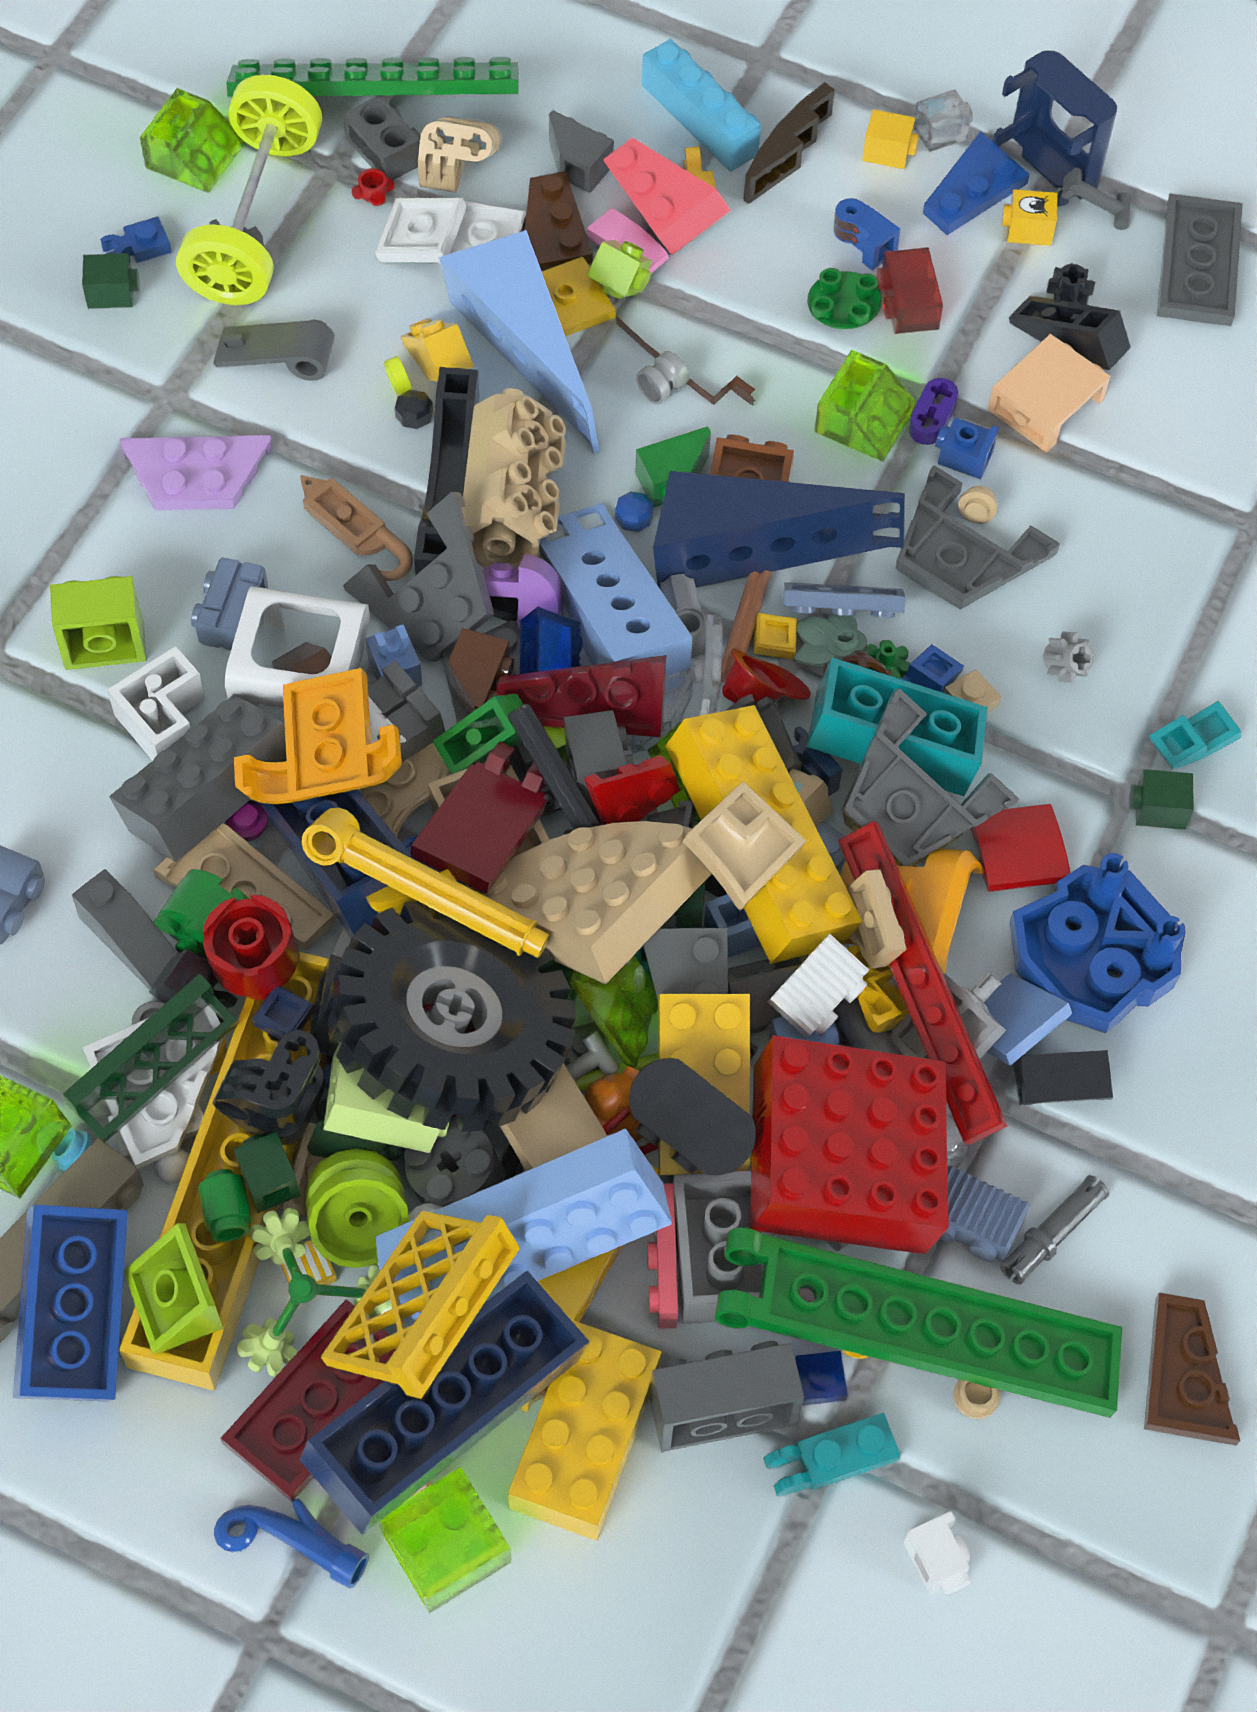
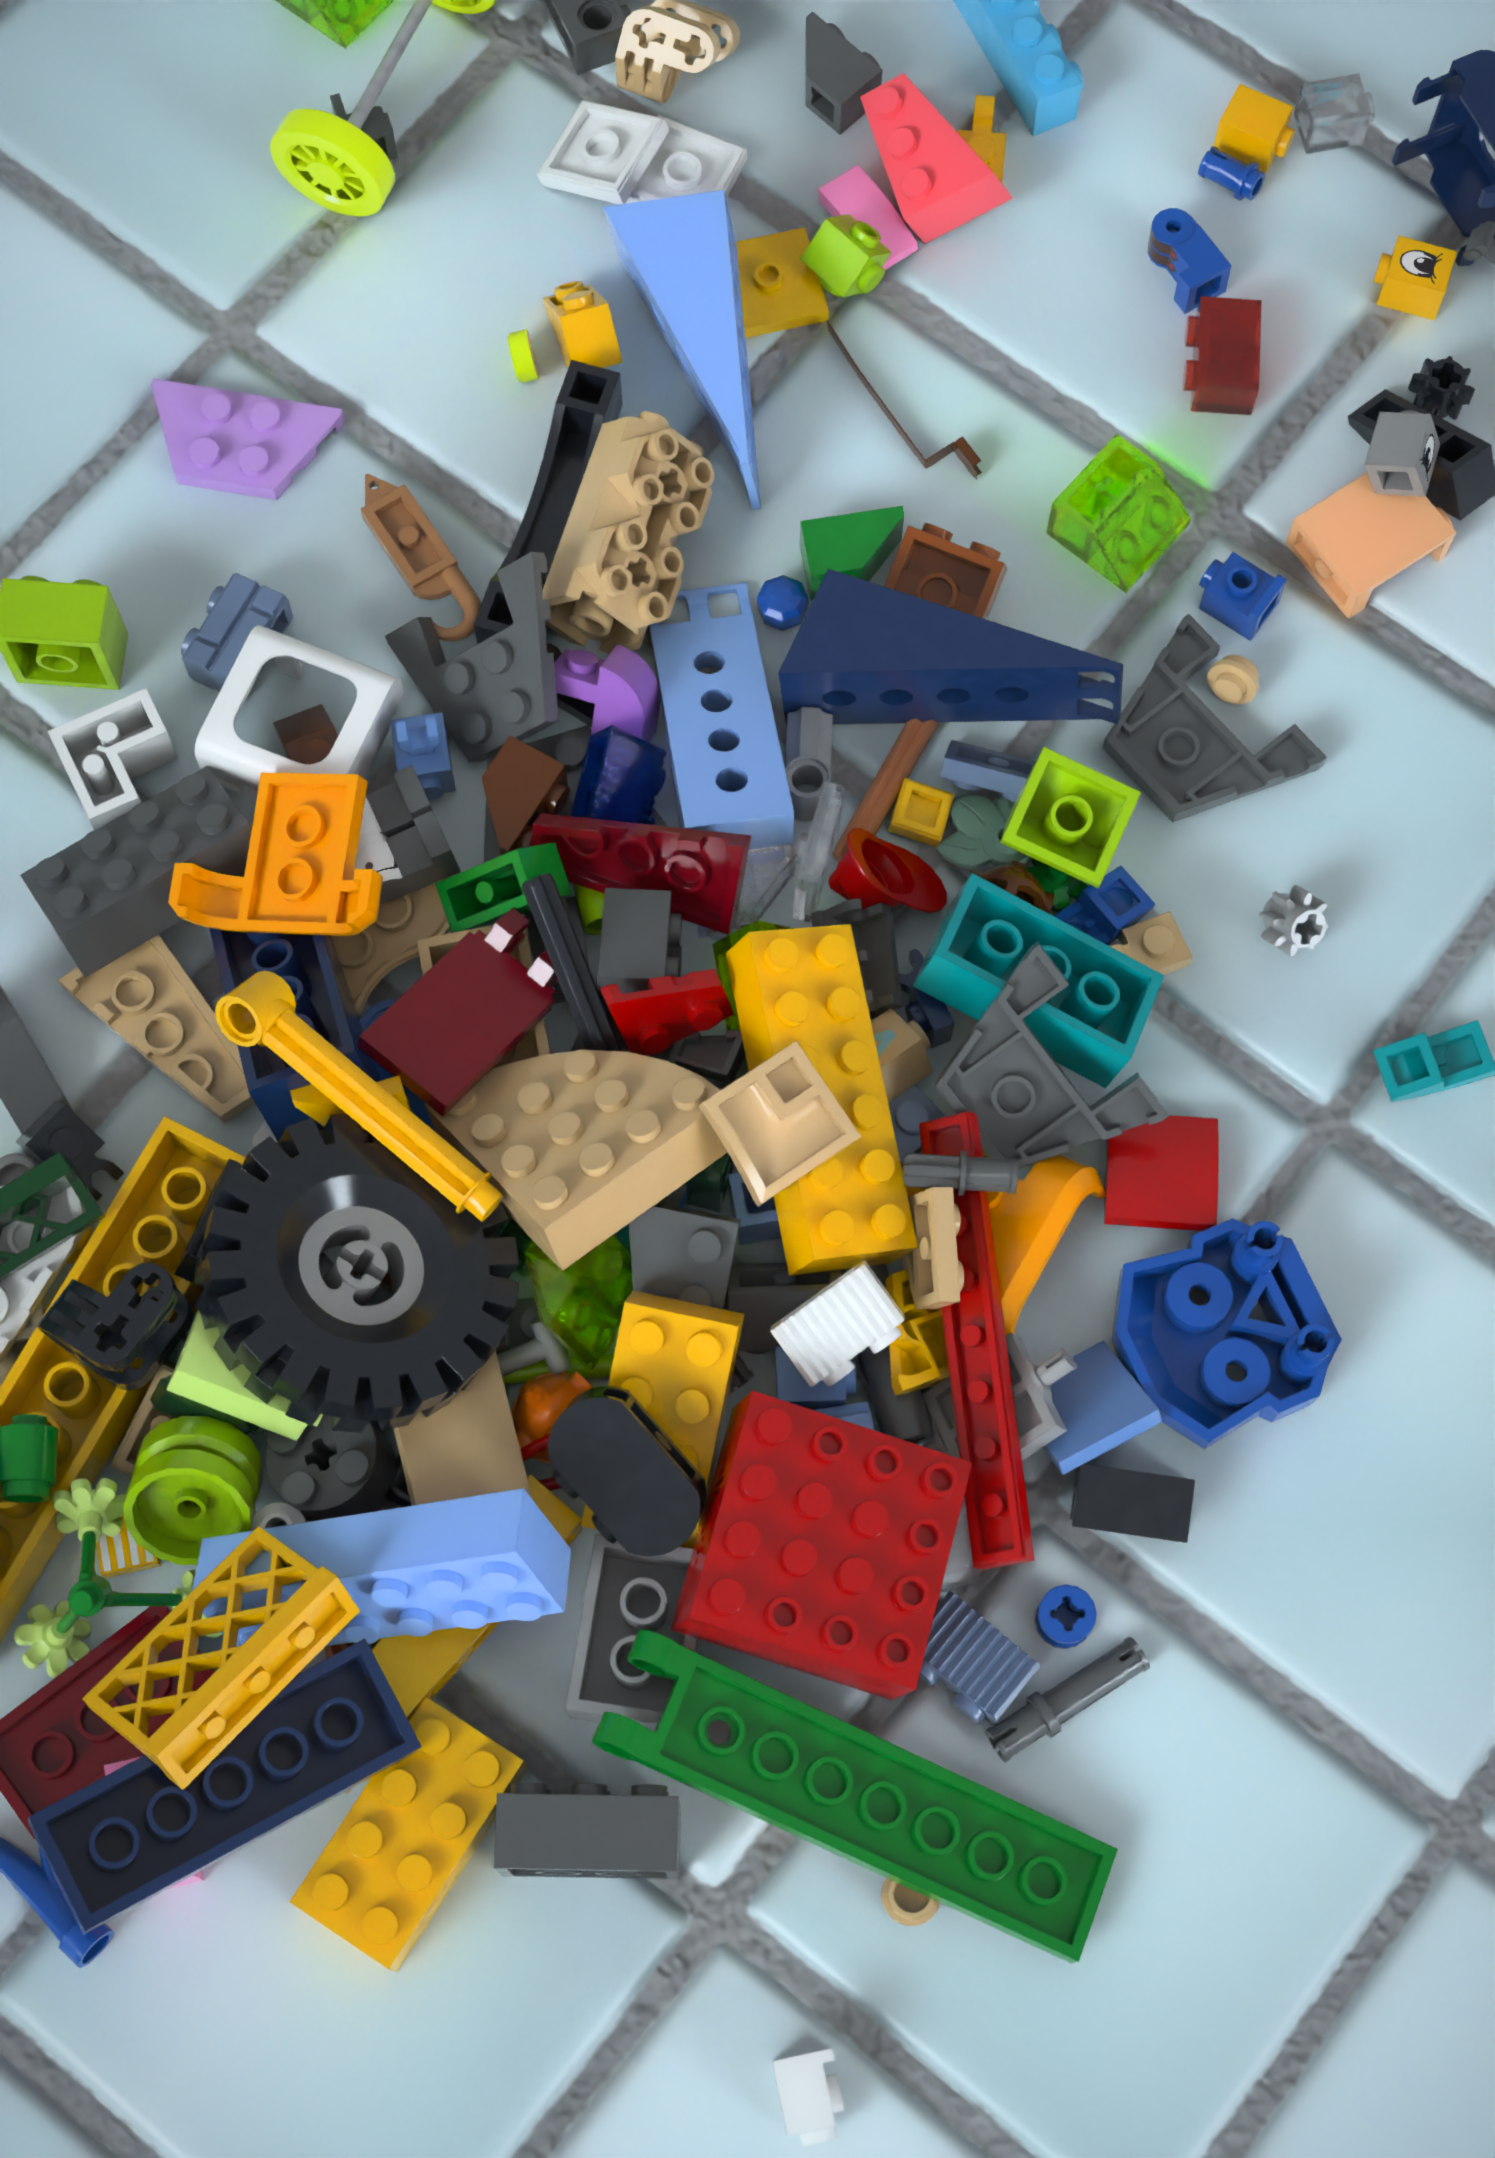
camera: 15 degrees right, 10 degrees up
(109, 280) = (187, 154): dark green brick -> none
(141, 240) = (246, 103): blue plate -> none
(189, 908) = (103, 1063): green brick -> none
(248, 821) = (188, 940): magenta plate -> none
(250, 946) = (154, 1147): red brick -> none
(266, 1171) = (87, 1425): dark green brick -> none
(282, 1013) = (161, 1218): dark blue tile -> none
(298, 344) = (404, 288): dark grey door -> none
(373, 187) = (557, 67): red plate -> none
(413, 409) = (533, 404): black tile -> none
(445, 1540) = (204, 1941): clear neon green piece -> none
(555, 222) = (777, 174): reddish brown wing -> none
(662, 1258) = (551, 1681): coral plate -> none
(666, 374) = (865, 420): light grey wheel -> none
(783, 148) = (1106, 119): dark brown slope -> none
(822, 1377) = (720, 1830): clear blue plate -> none
(836, 1455) = (717, 1931): teal hinge -> none
(844, 299) = (1134, 351): green dish -> none
(881, 171) = (1232, 173): none -> blue pin
(884, 859) = (960, 1172): none -> dark grey axle
(889, 611) = (1069, 817): none -> lime slope
(939, 413) = (1202, 527): dark purple beam -> none
(974, 185) = (1352, 214): blue wing -> none
(1031, 1180) = (1055, 1628): none -> blue wheel
(1059, 327) = (1402, 453): none -> light grey brick
(1163, 799) = (1366, 1143): dark green brick -> none
(1184, 1374) = (1181, 1929): reddish brown wing -> none

